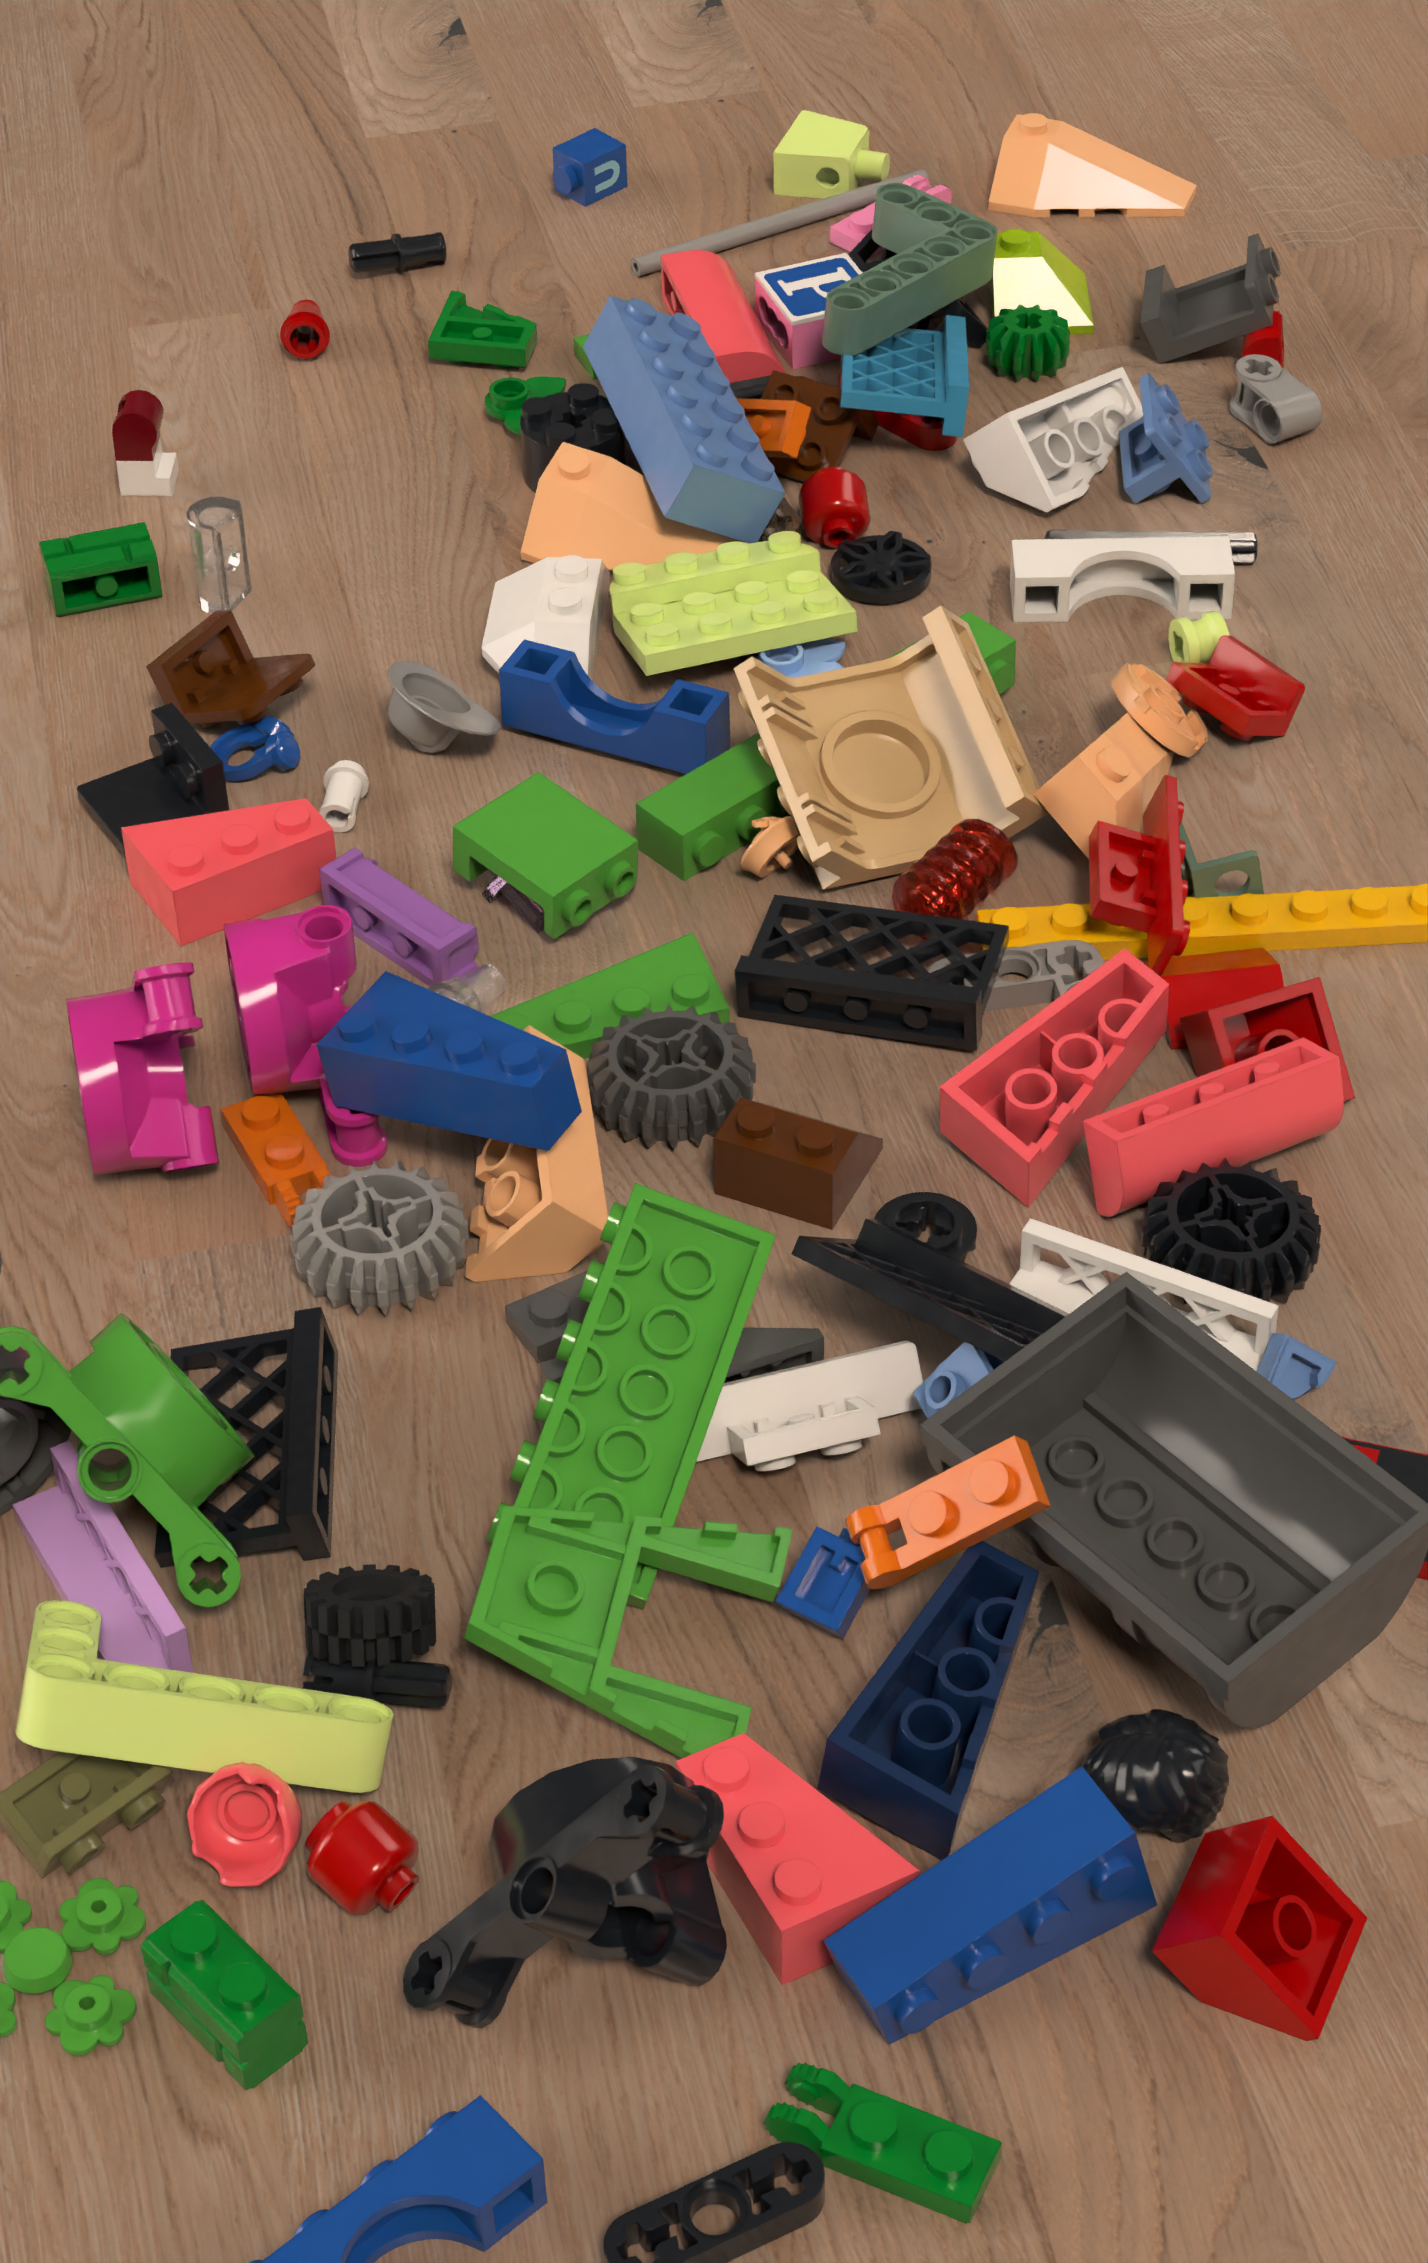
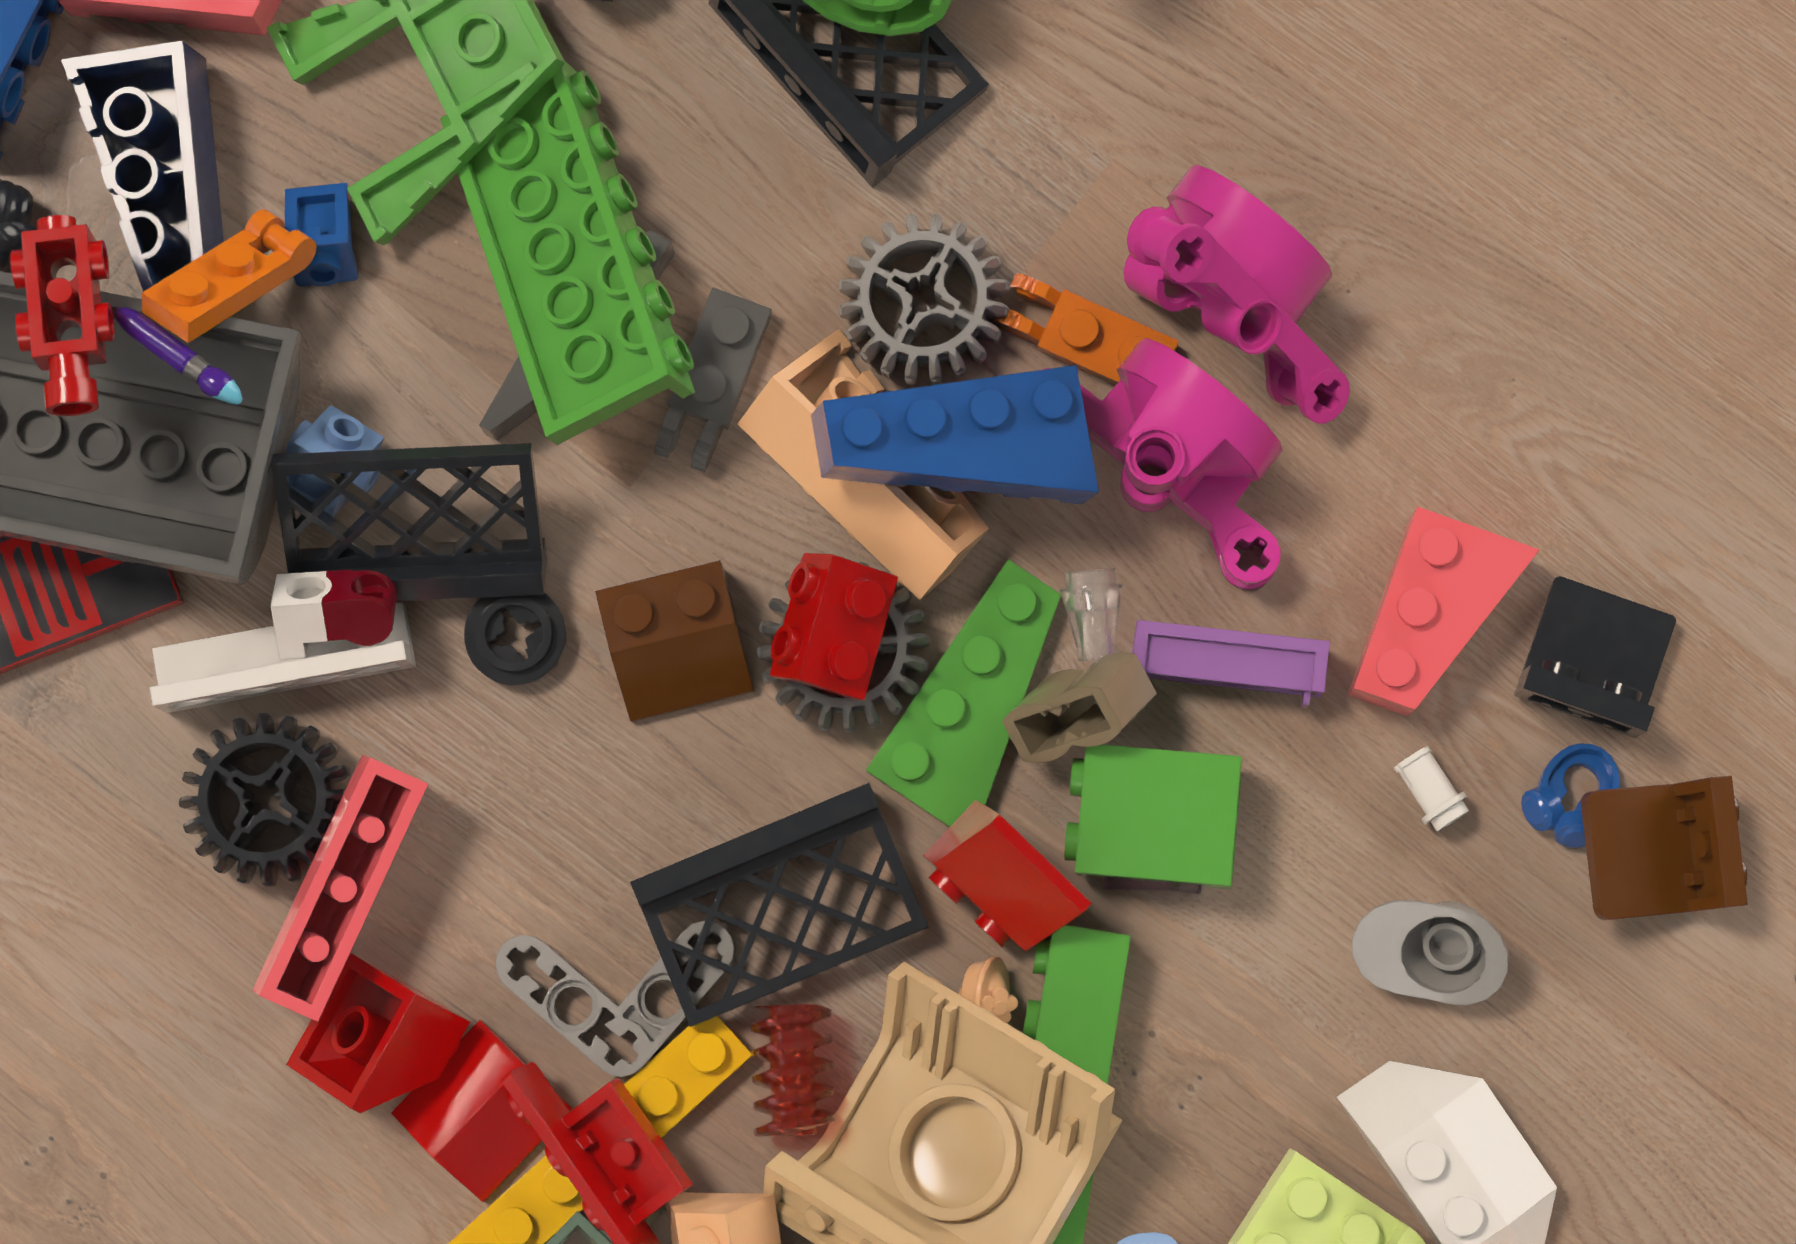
camera: 150 degrees right, 40 degrees up
(534, 921) = (1079, 707): none -> dark tan brick
(555, 698) = (1272, 1068): blue arch -> none
(671, 1049) = (832, 624): none -> red bracket
(690, 875) = (1004, 878): none -> red slope
(812, 1406) = (450, 363): white bracket -> none
(1028, 1095) = (510, 854): coral wedge -> none
(1053, 1273) = (331, 608): none -> leg
(1056, 1479) = (212, 380): none -> dark purple piece
(1095, 1551) = (62, 304): none -> red brick
(1294, 1366) = (133, 688): medium blue tile -> none

